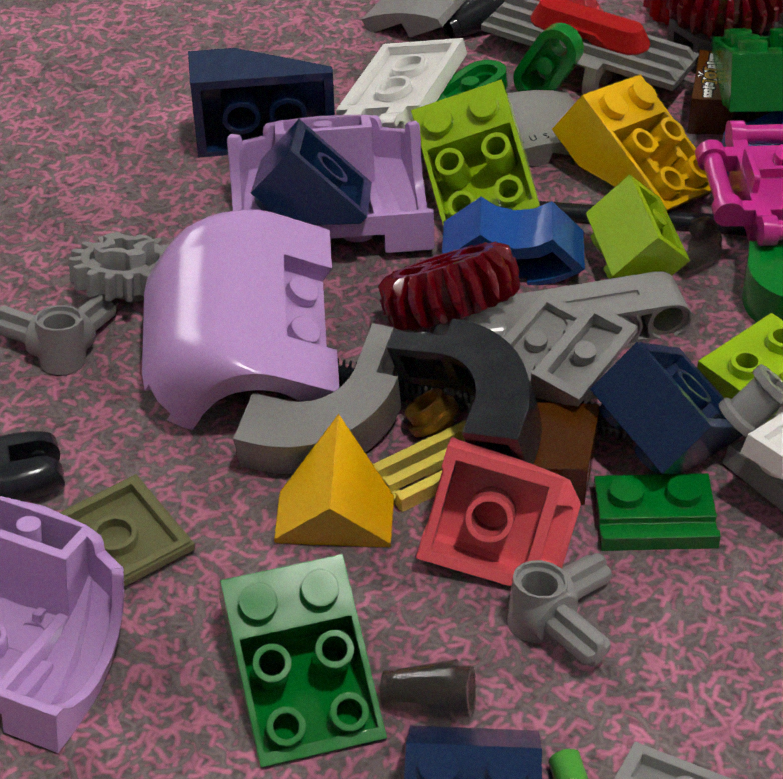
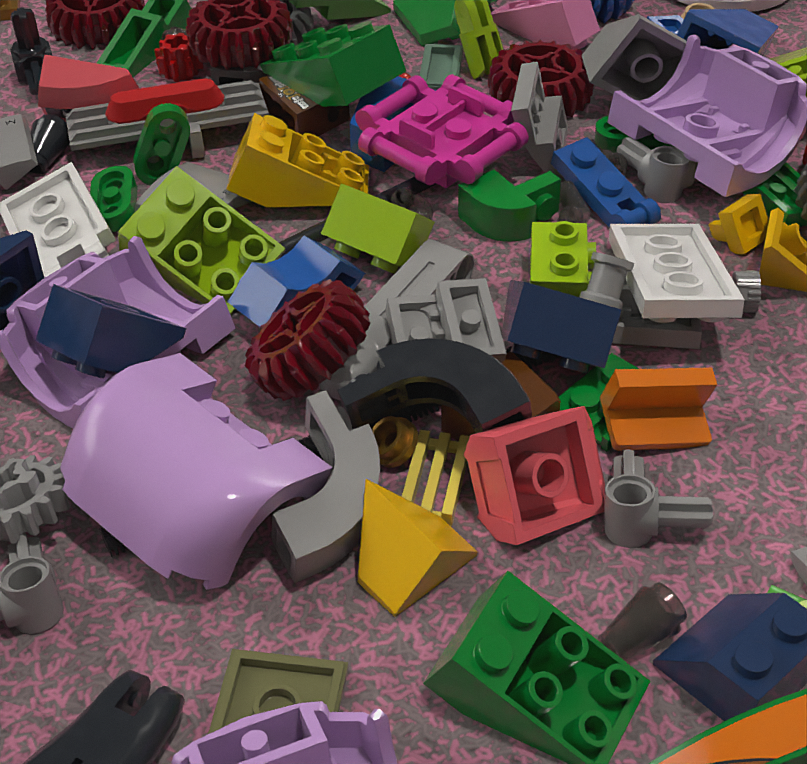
camera: 45 degrees left, 0 degrees up
(673, 543) = (658, 408): none -> orange panel

